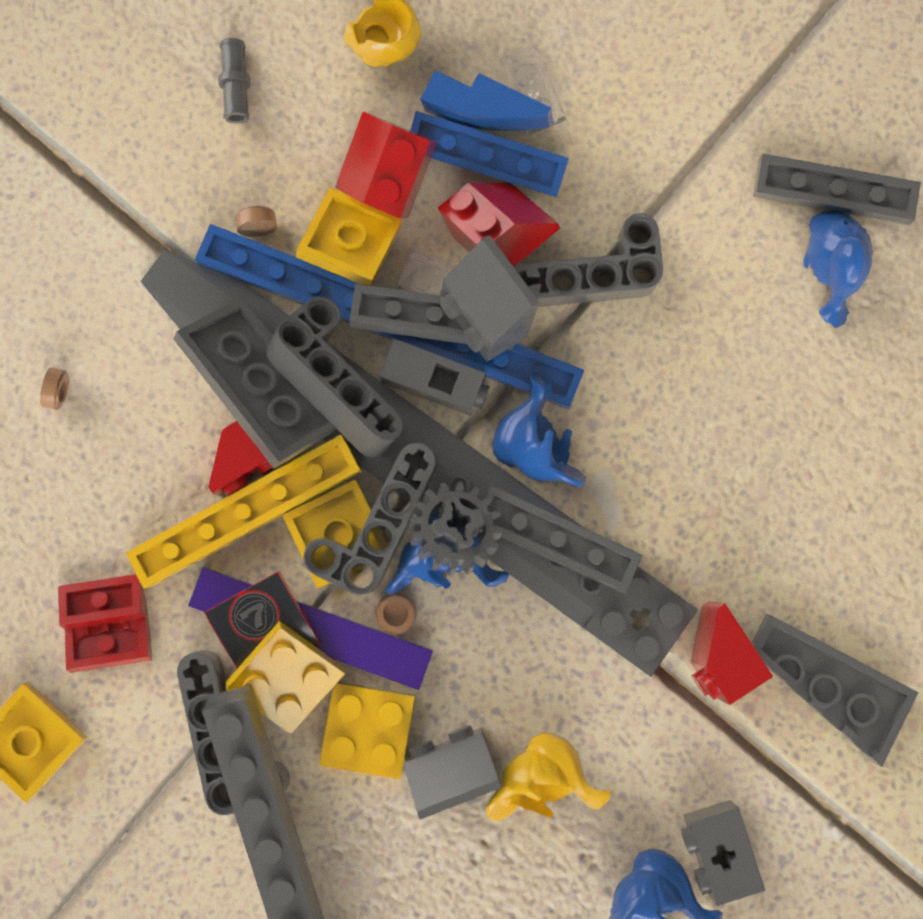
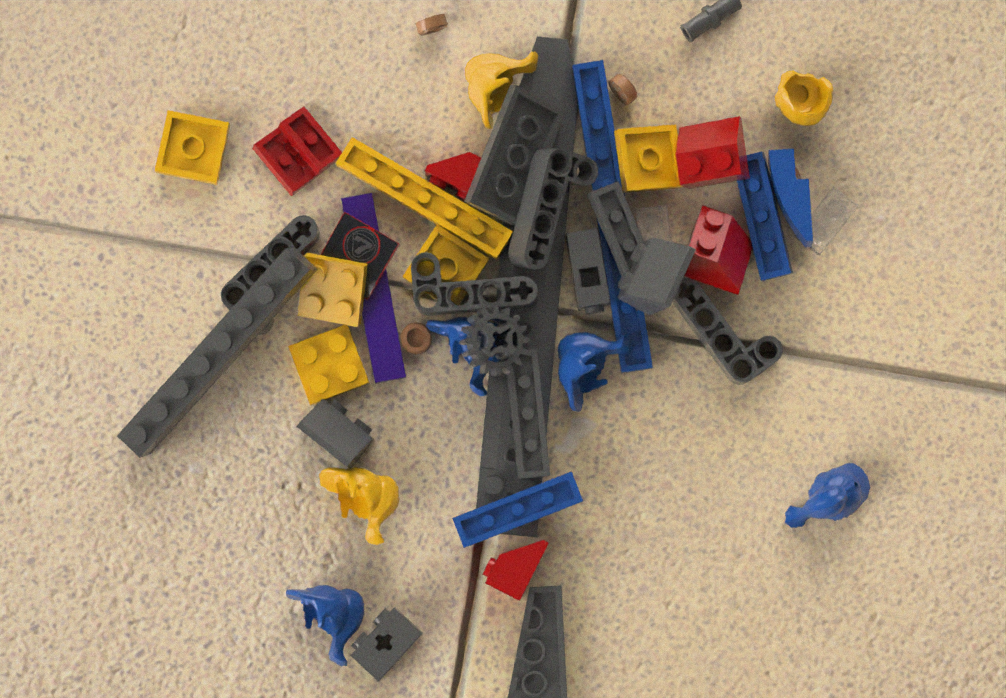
camera: 55 degrees right, 0 degrees up
(156, 360) = (490, 79): none -> yellow piece
(659, 615) = (517, 509): none -> blue plate
(836, 189) = (881, 468): dark grey plate -> none

